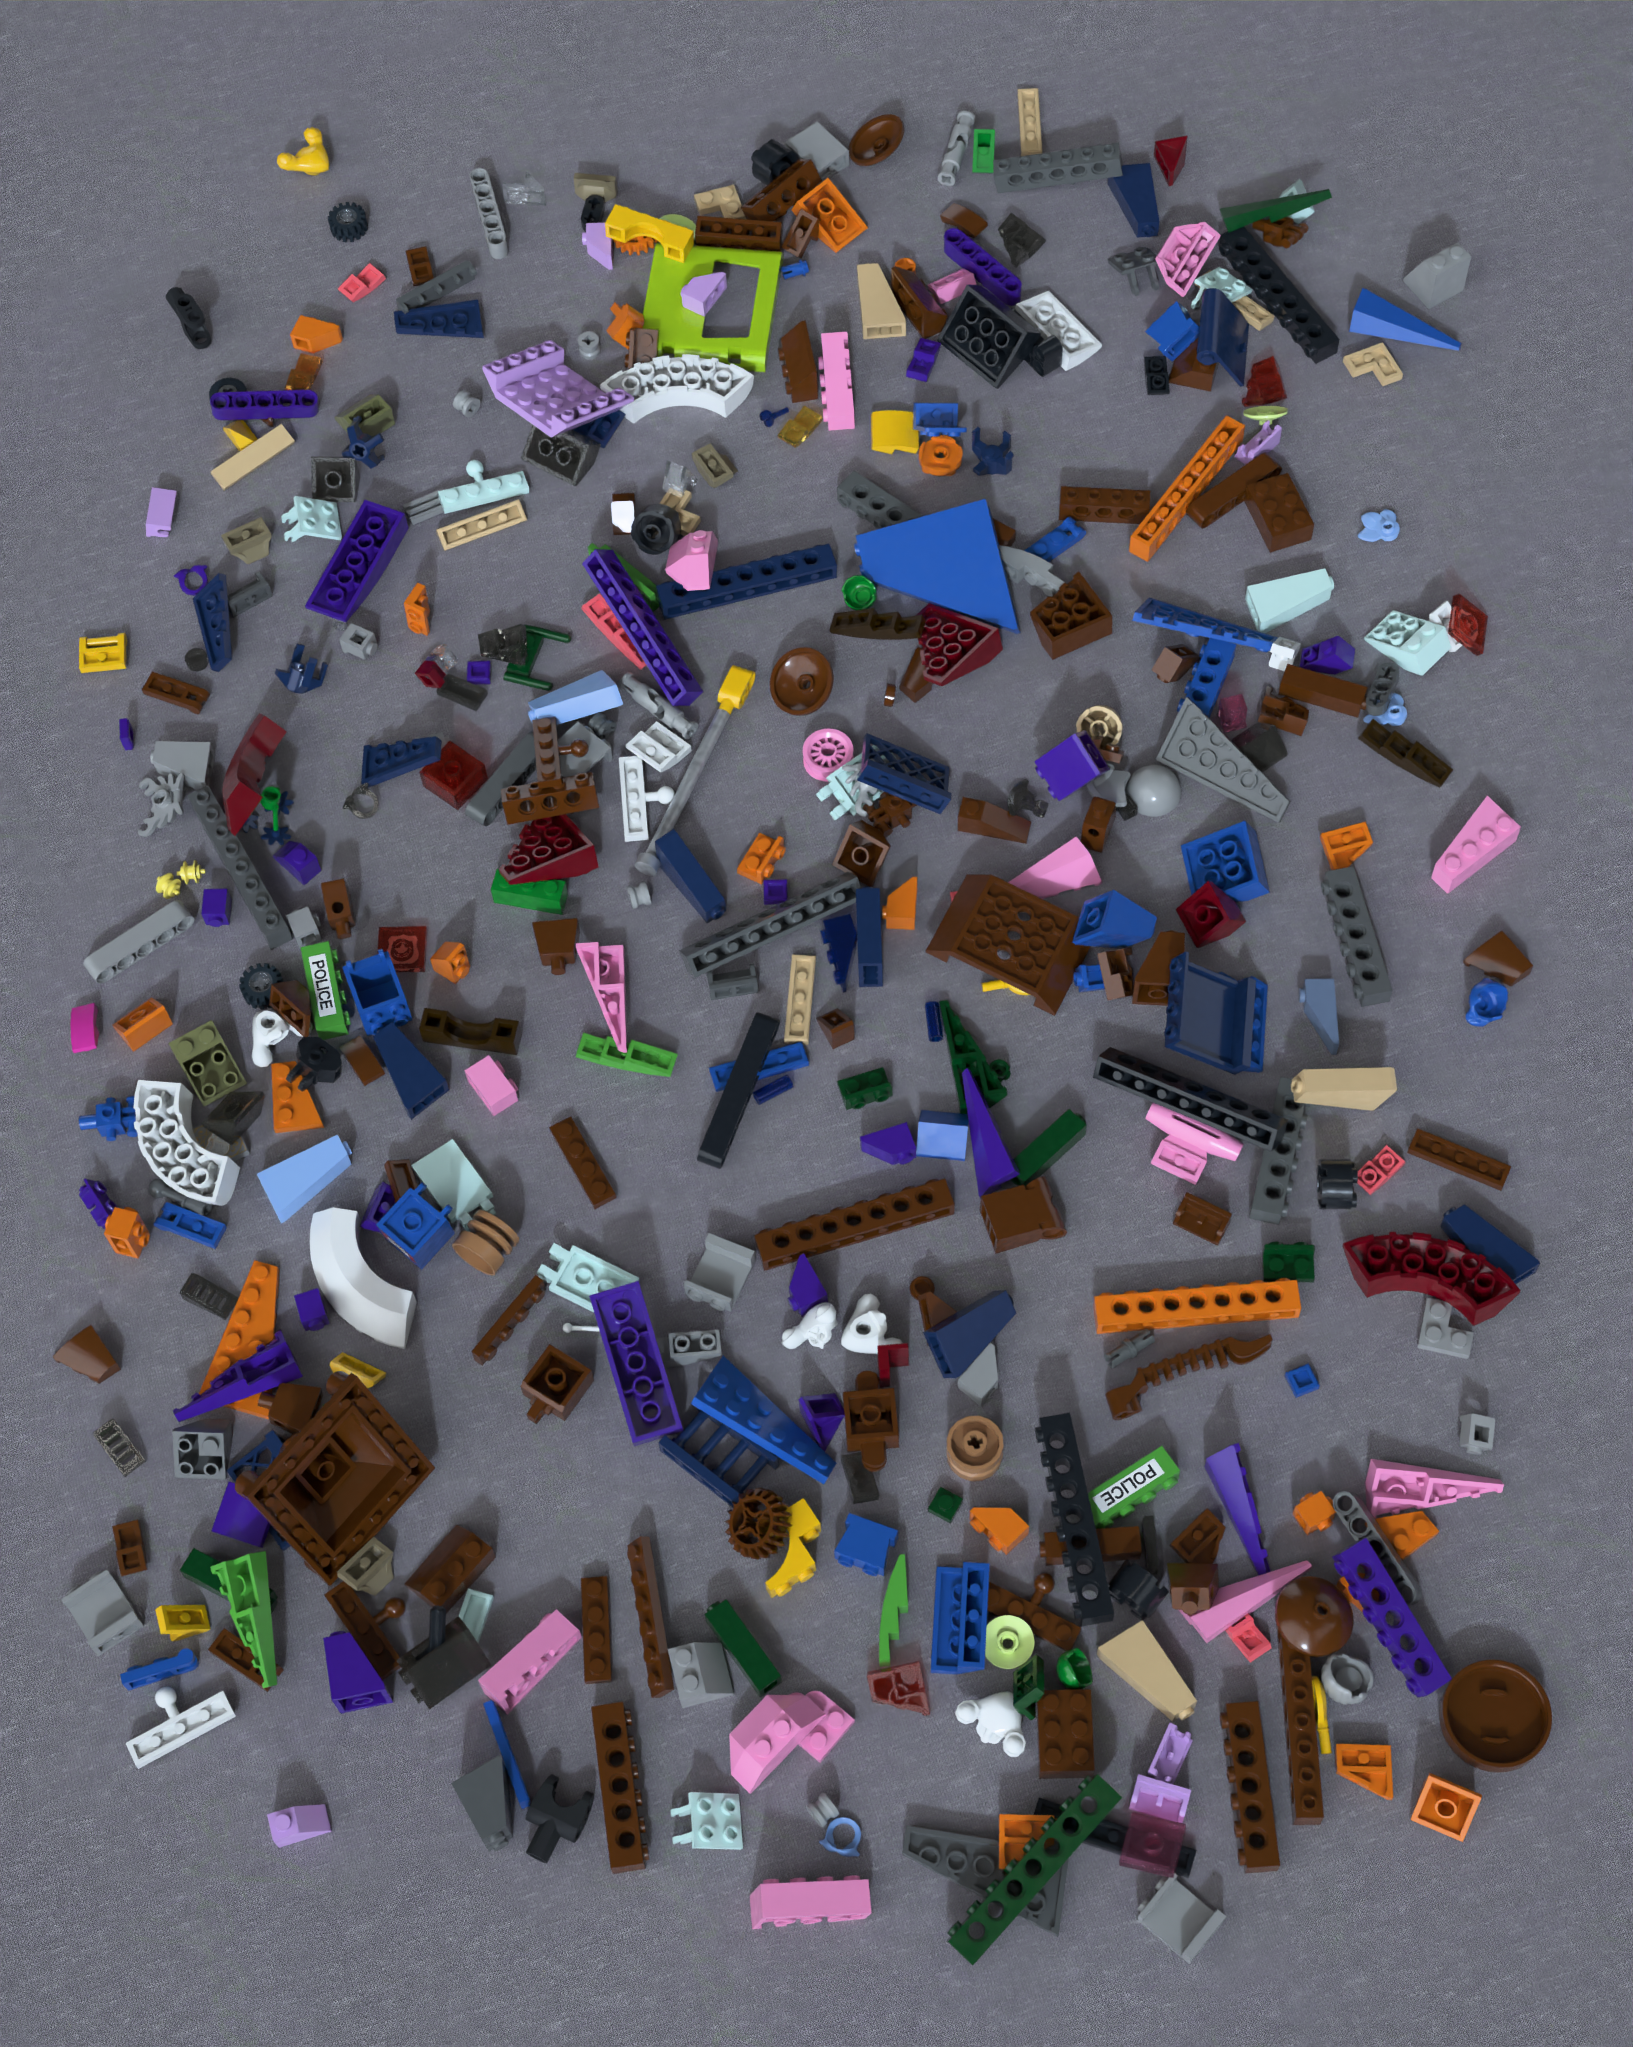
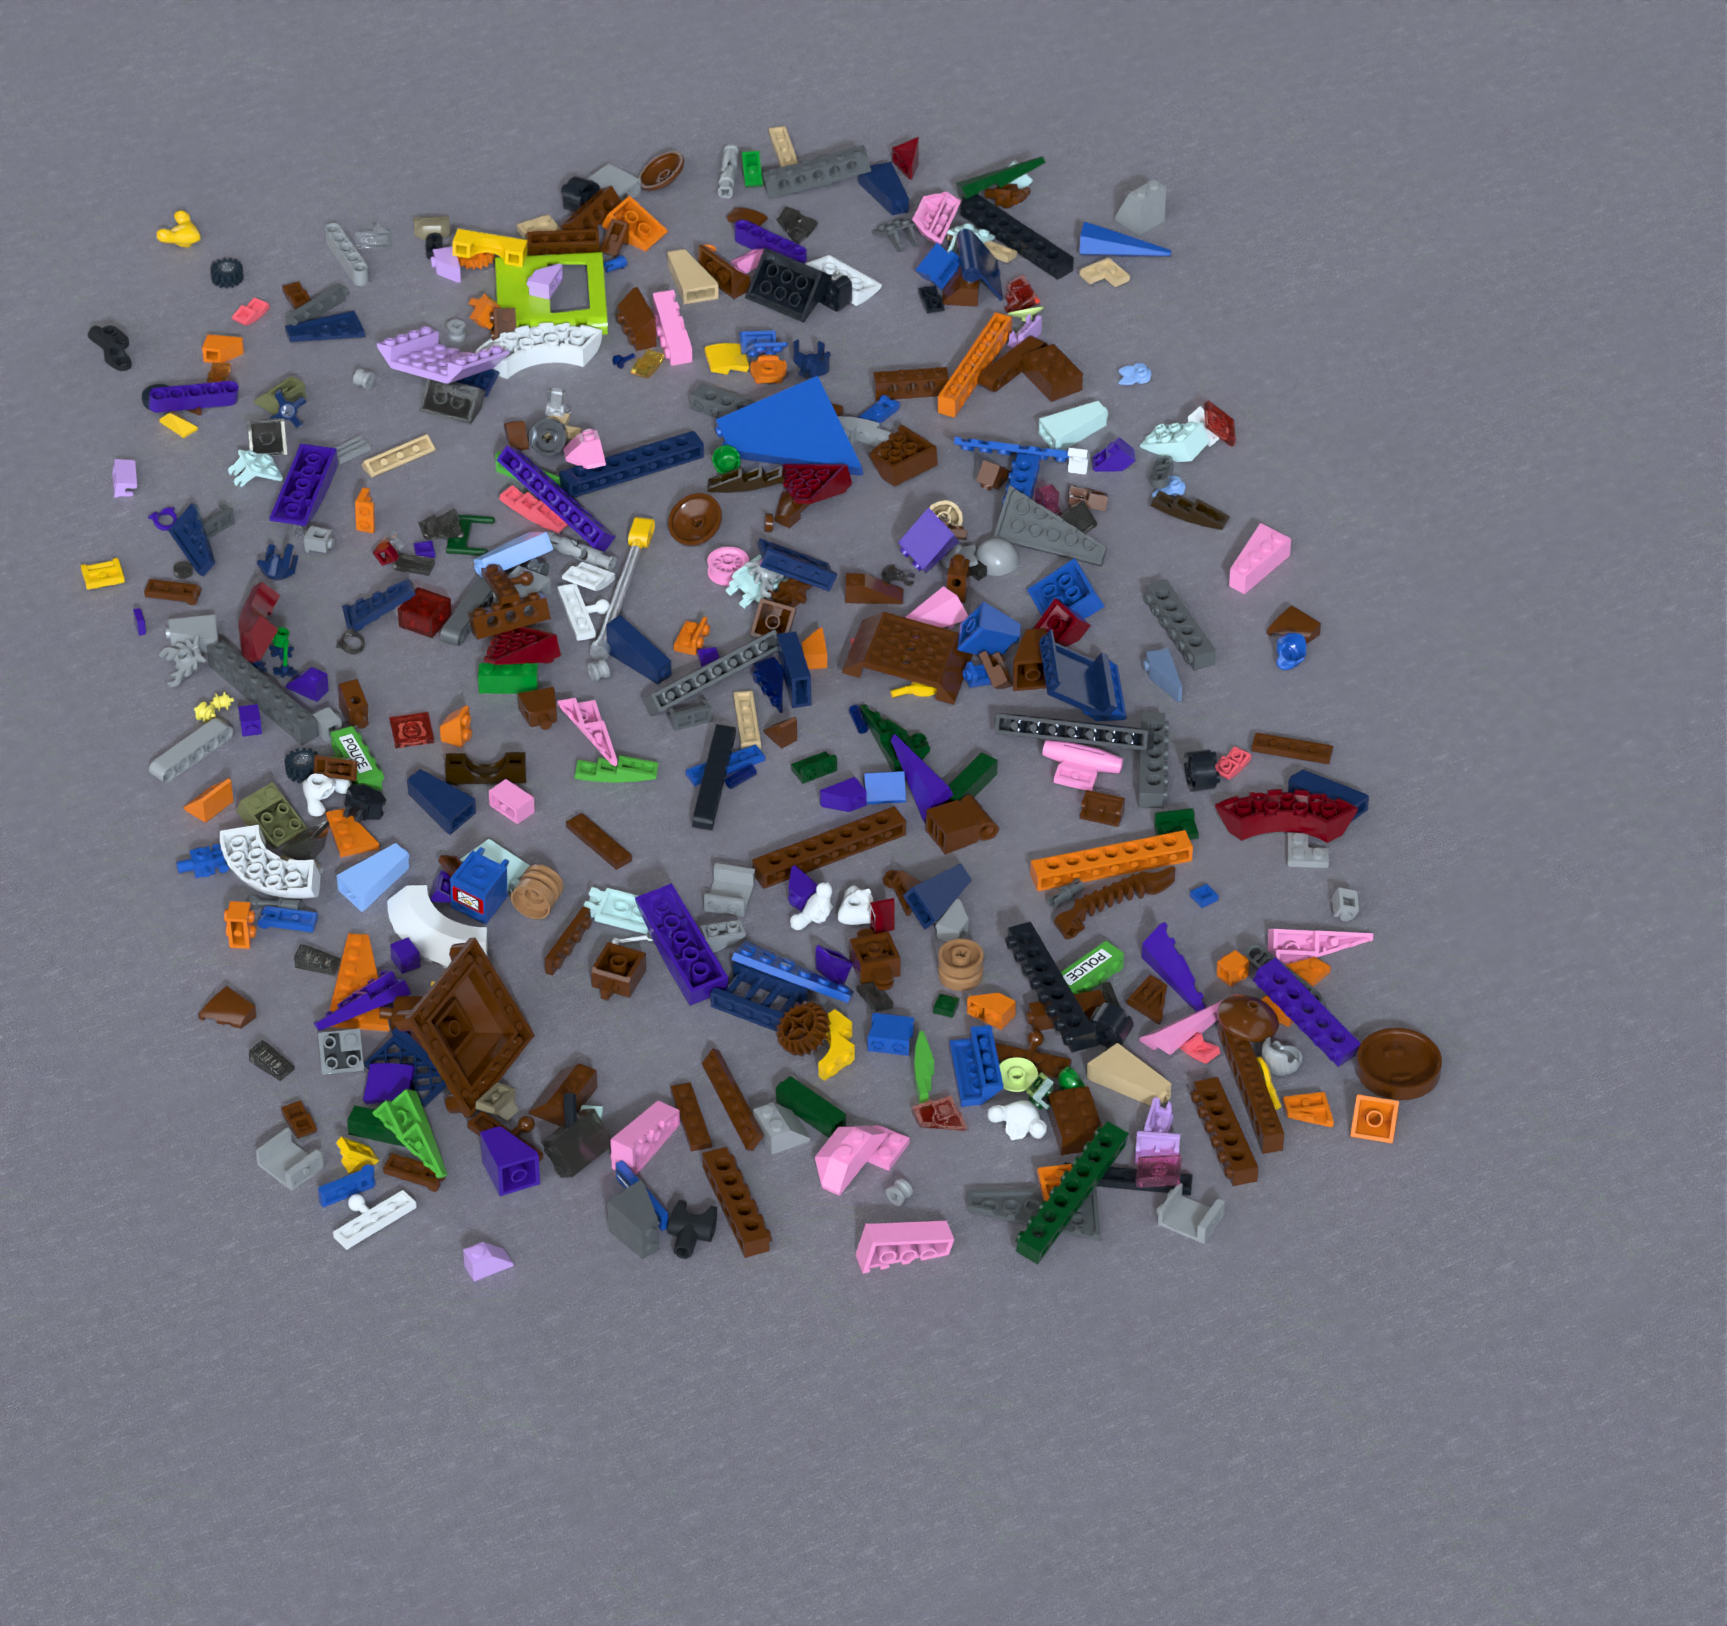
camera: 15 degrees left, 20 degrees down
(83, 1028) = (162, 809): dark pink slope -> none
(95, 1194) = (203, 910): dark purple hinge -> none
(249, 541) = (205, 487): dark tan slope -> none
(252, 457) = (191, 434): tan tile -> none
(362, 1060) = (402, 801): reddish brown slope -> none
(377, 992) = (401, 750): blue container -> none
(482, 490) = (393, 434): light aqua plate -> none
(713, 466) = (582, 396): dark tan slope -> none
(713, 1819) = (815, 1208): light aqua plate -> none
(850, 1849) = (925, 1215): medium blue piece -> none
(923, 359) = (737, 310): dark purple slope -> none
(1192, 1586) = (1150, 1018): reddish brown torso -> none
(1323, 690) = (1116, 479): reddish brown brick -> none
(1345, 1087) = (1194, 709): tan slope -> none
(1346, 844) = (1157, 569): orange wing -> none

